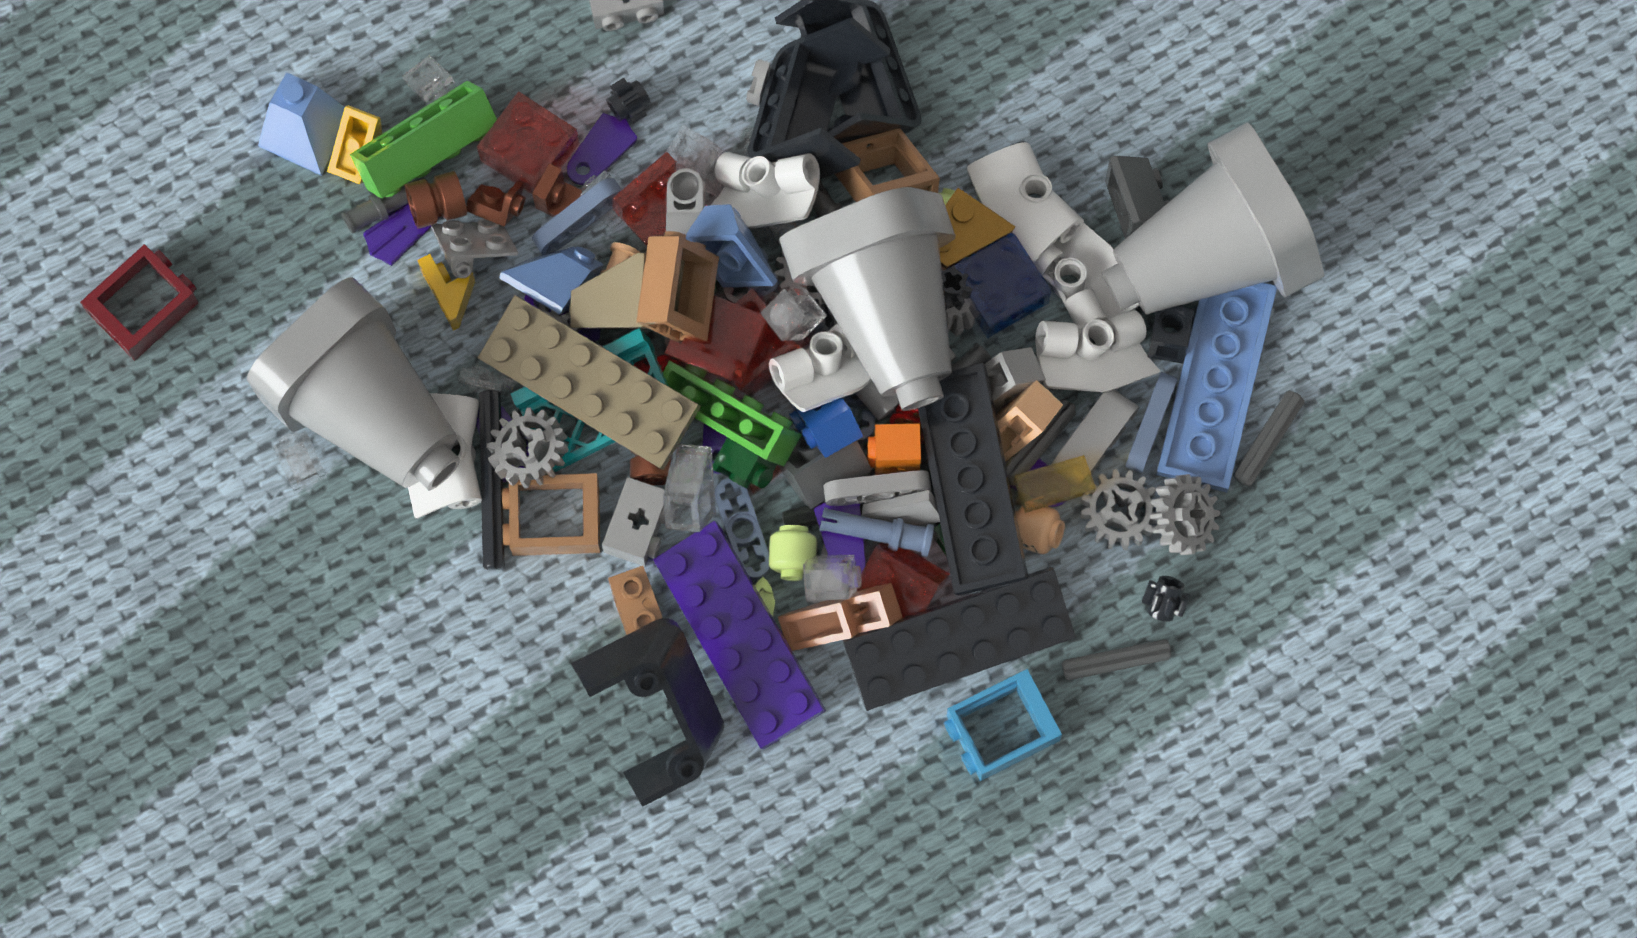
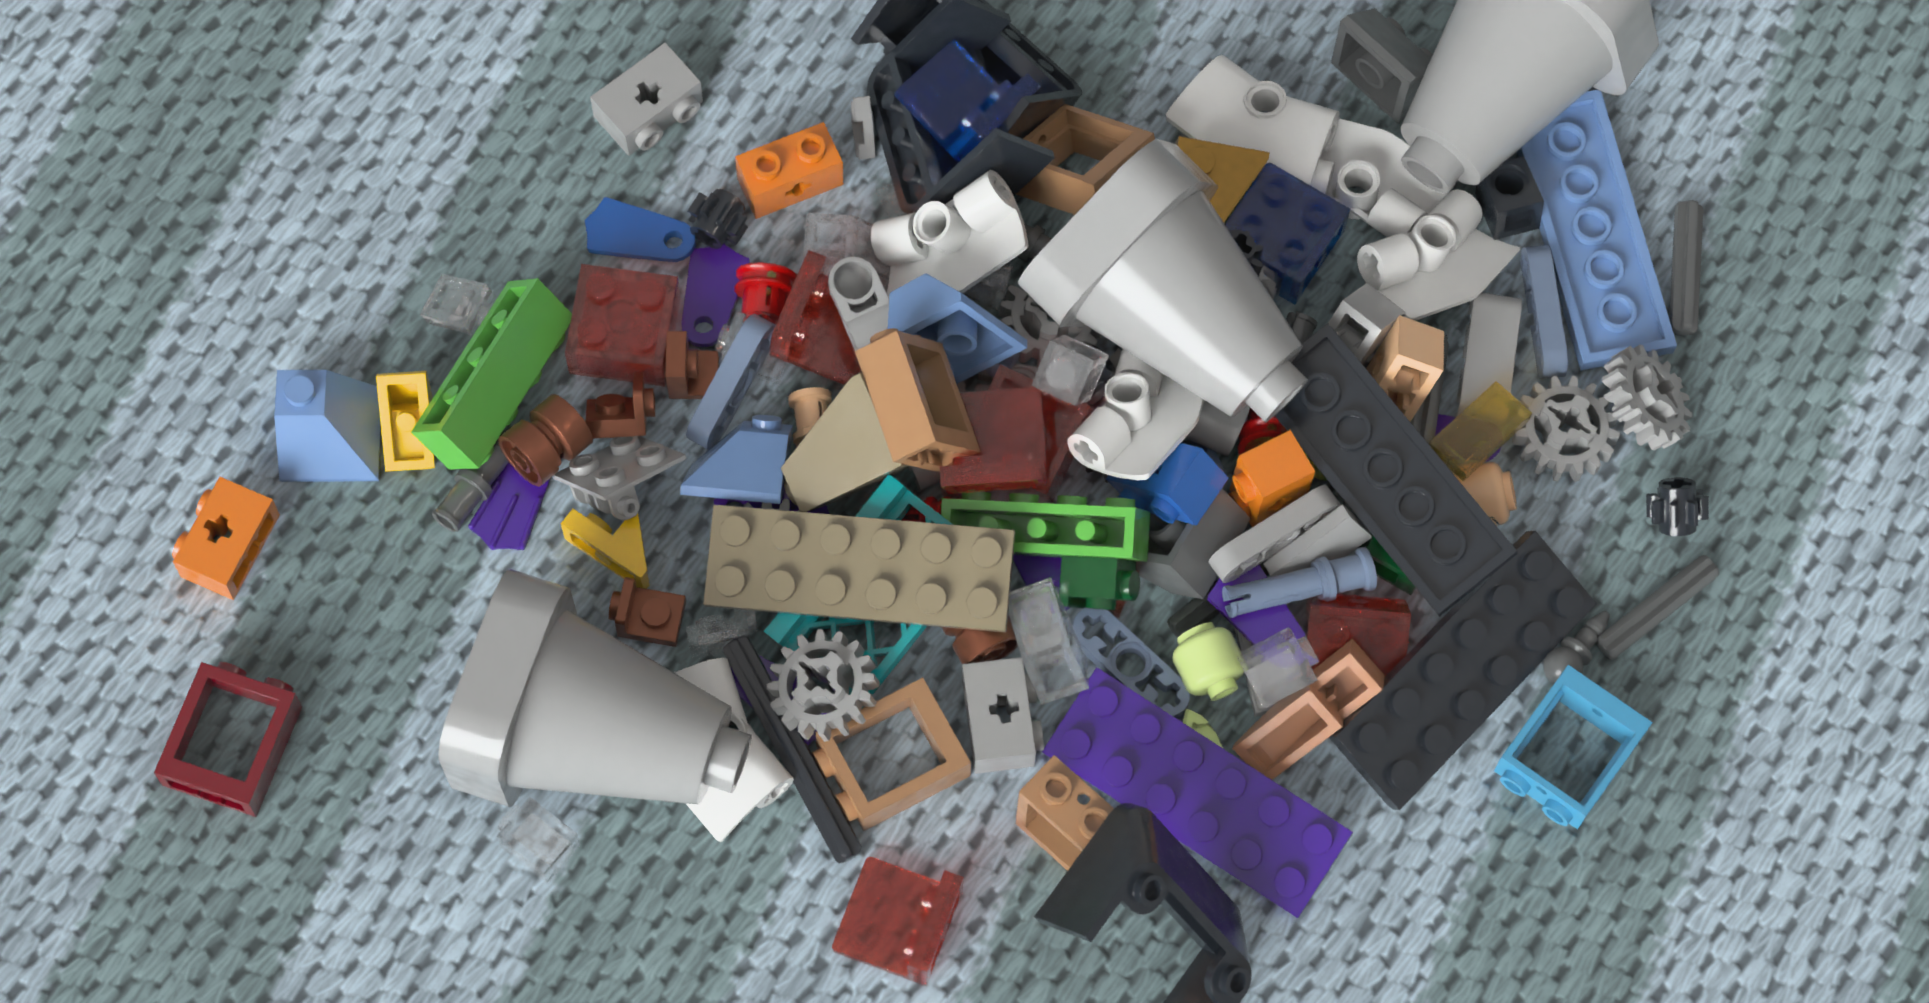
camera: 30 degrees left, 5 degrees down
(197, 185) = (227, 562): none -> orange brick
(446, 345) = (647, 614): none -> copper bracket
(502, 624) = (898, 919): none -> clear red bracket
(572, 85) = (636, 233): none -> blue piece
(630, 158) = (764, 289): none -> red piece
(692, 89) = (789, 170): none -> orange brick
(825, 92) = (960, 99): none -> clear blue bracket
(1041, 663) = (1575, 650): none -> dark grey bar

